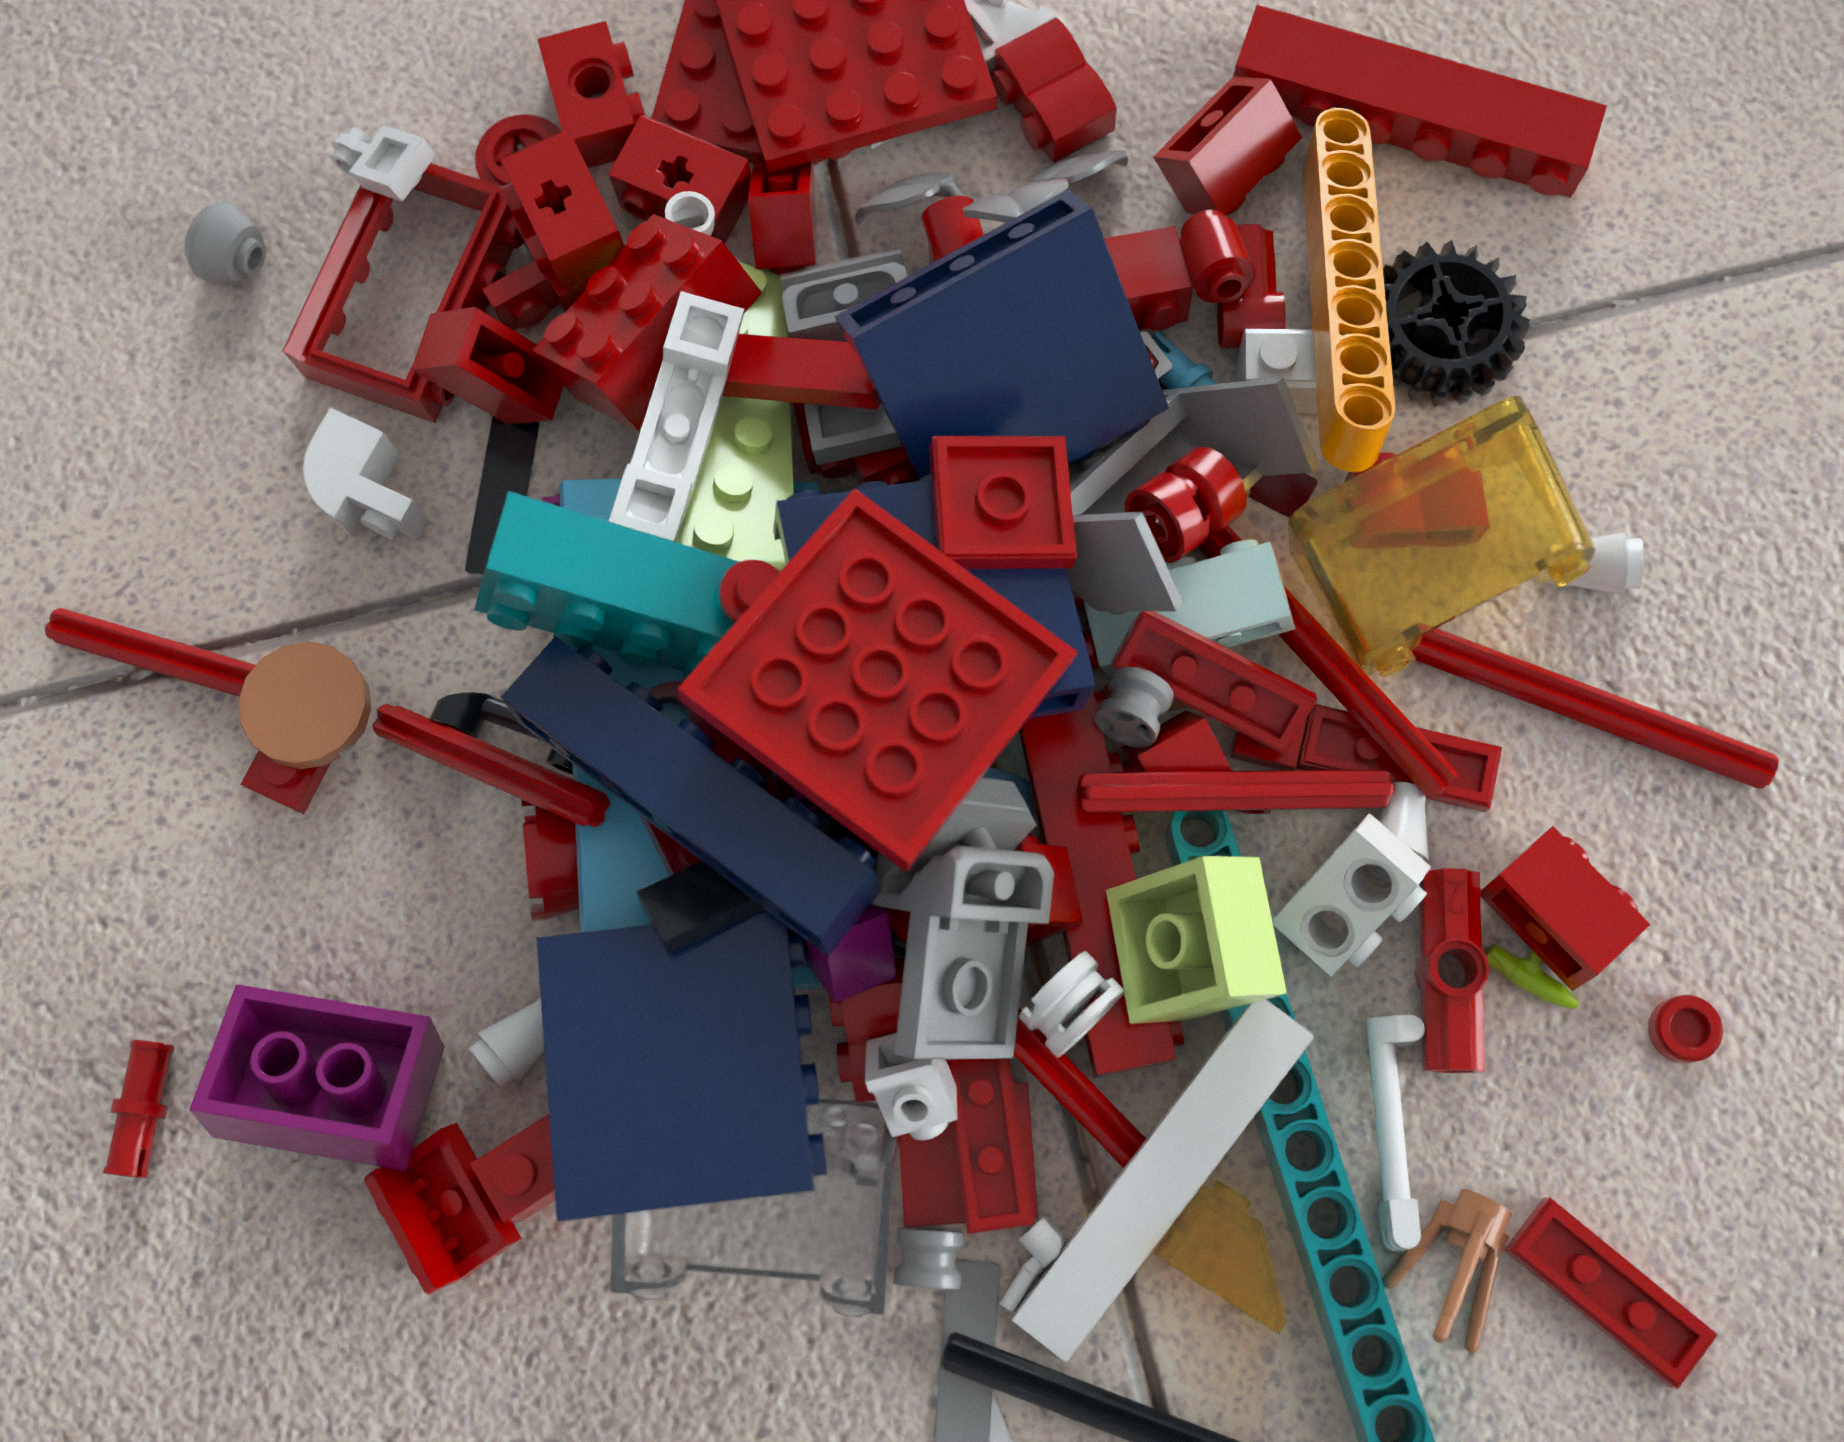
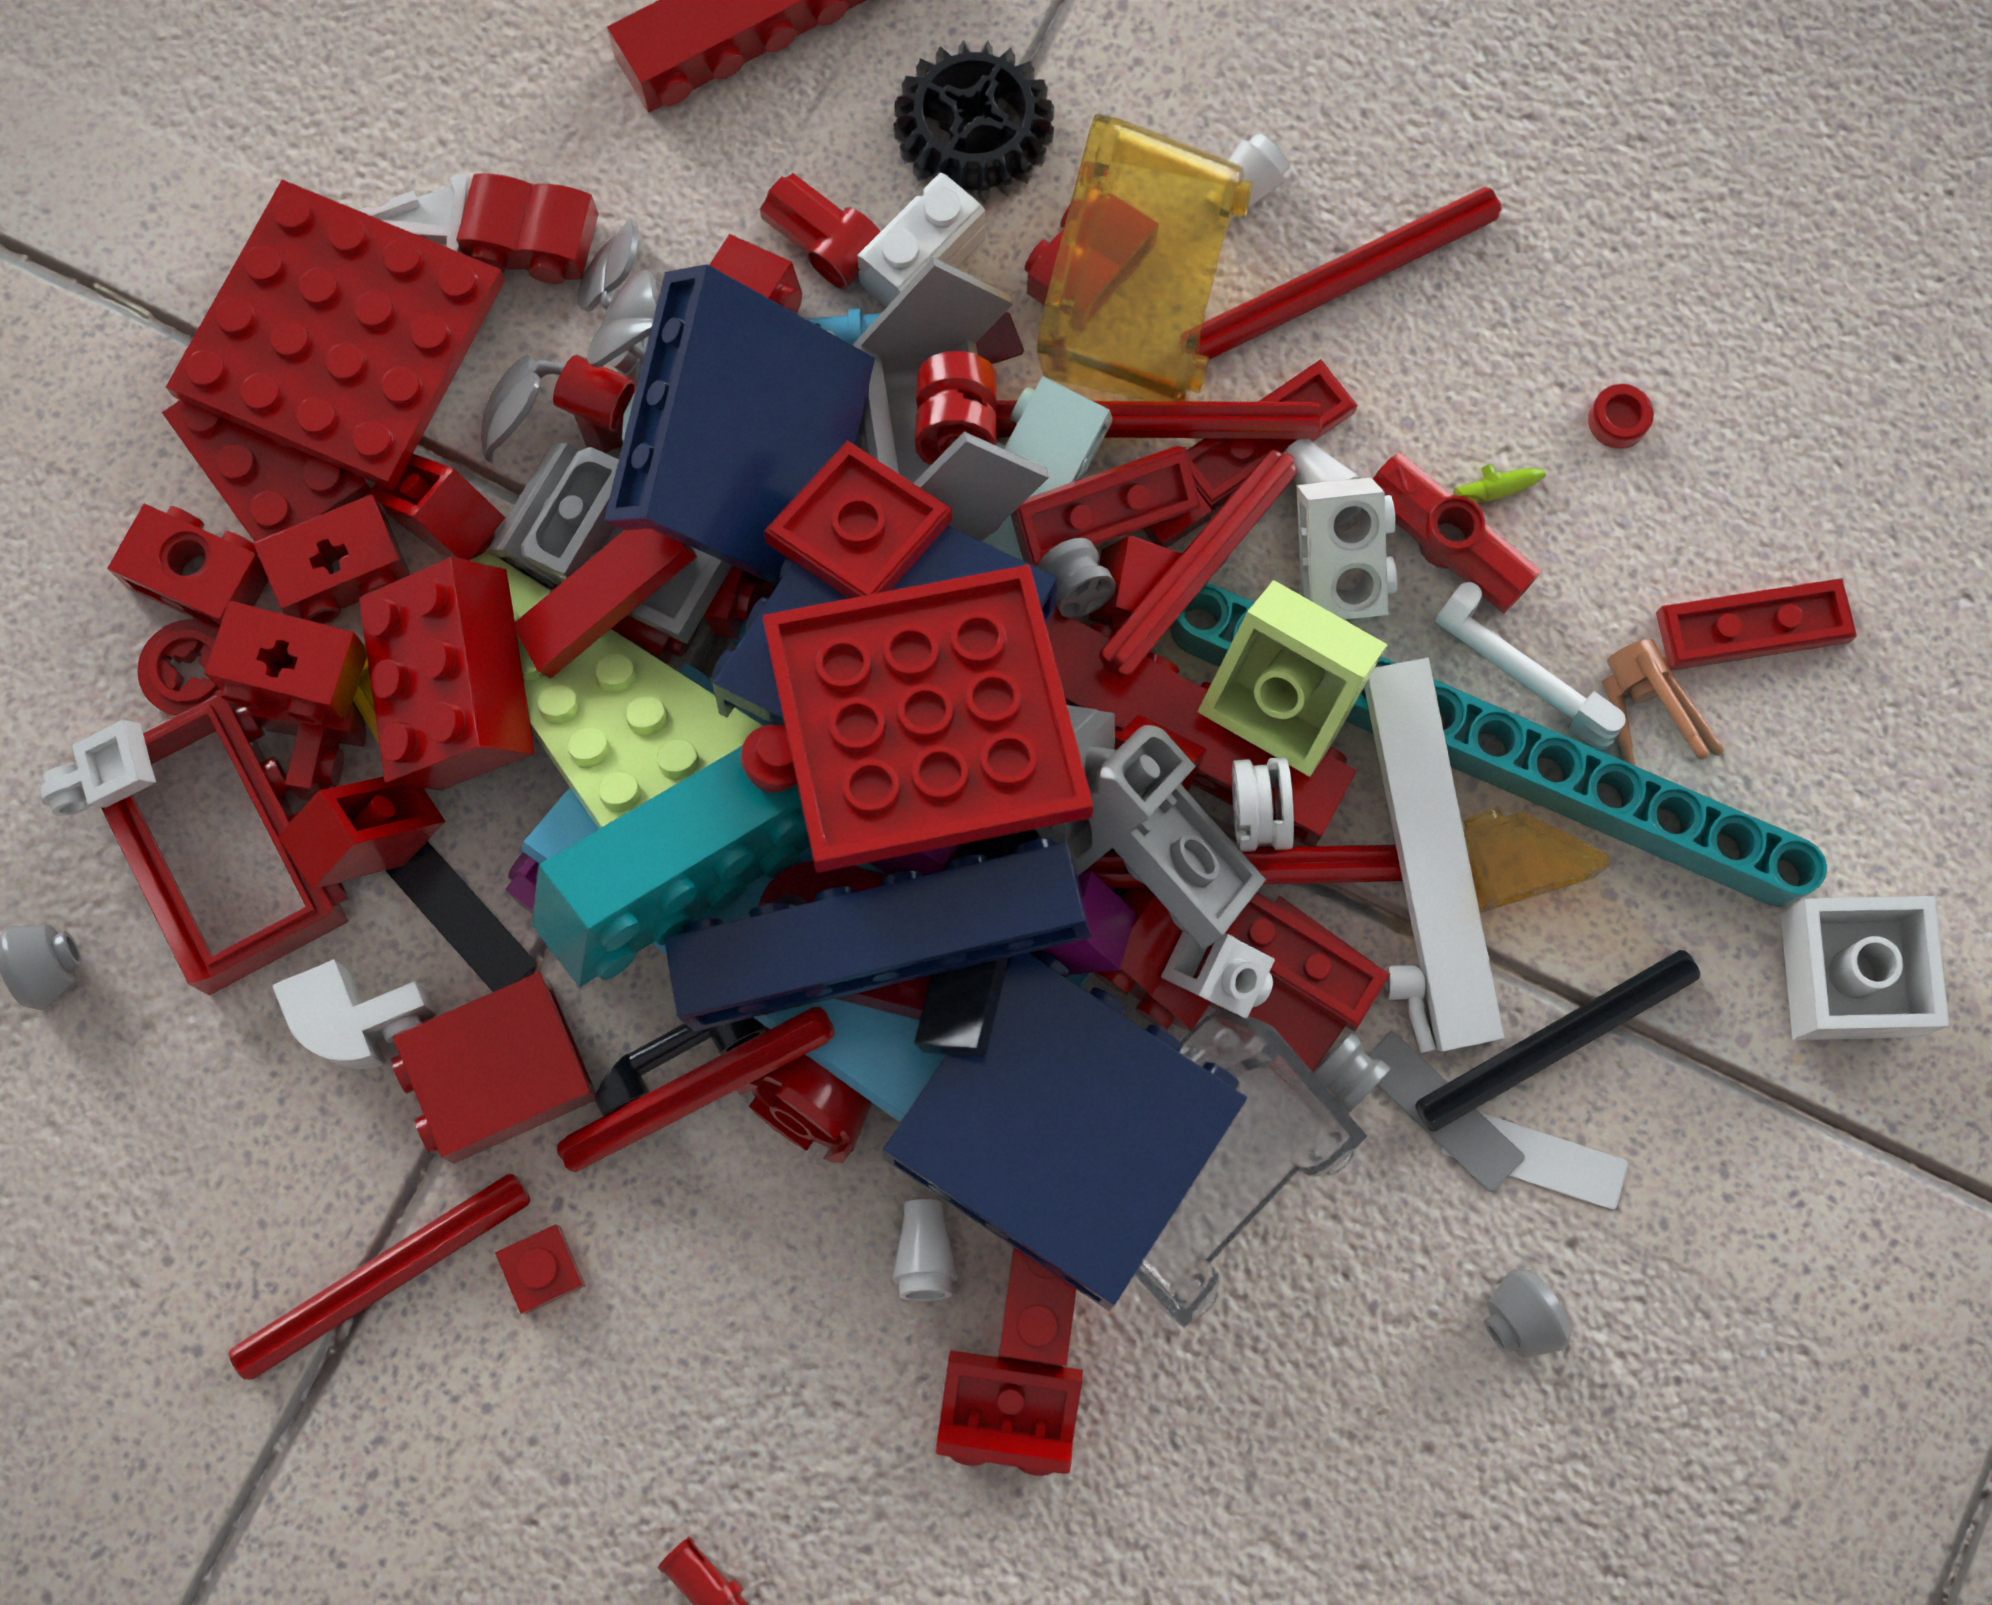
camera: 60 degrees left, 0 degrees up
(304, 705) = (506, 1204): nougat tile -> none
(319, 1077) = (826, 1426): magenta brick -> none
(399, 611) = (492, 1069): none -> red brick
(679, 417) = (563, 707): white slope -> none
(691, 211) = (377, 565): white hinge -> none
(1216, 257) = (783, 226): red brick -> none
(1228, 146) = (698, 145): red brick -> none
(1347, 292) = (898, 158): light orange beam -> none
(1564, 908) = (1474, 417): red brick -> none

